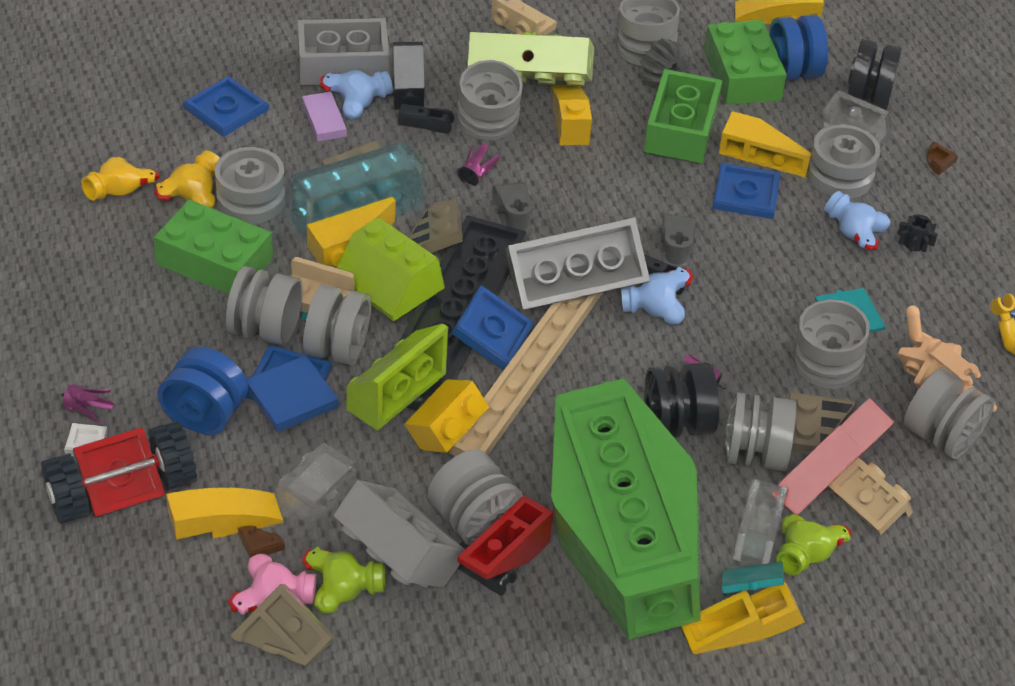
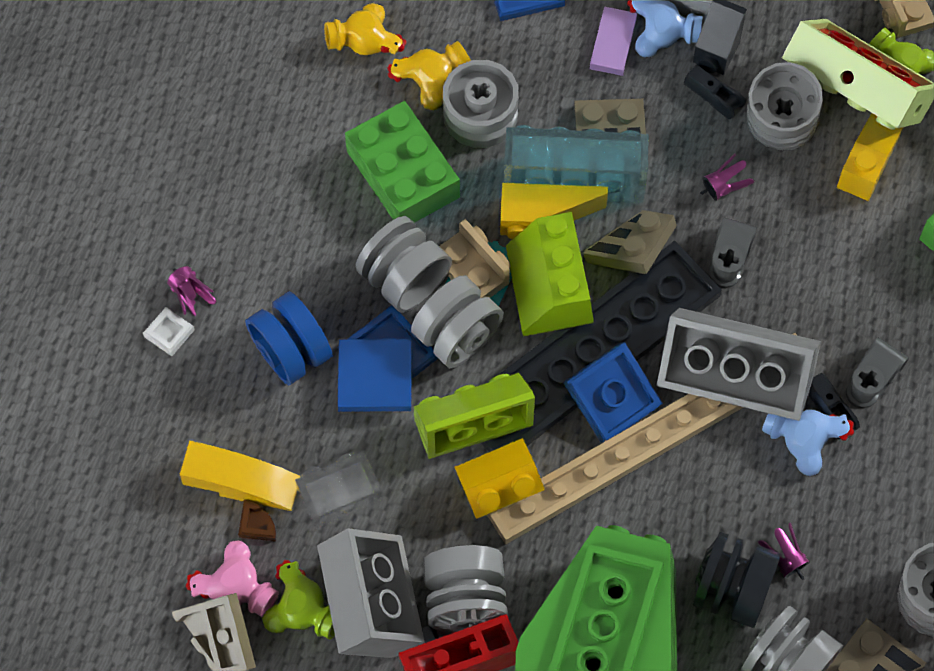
camera: 35 degrees right, 20 degrees up
(119, 472) = (167, 389): plate -> none

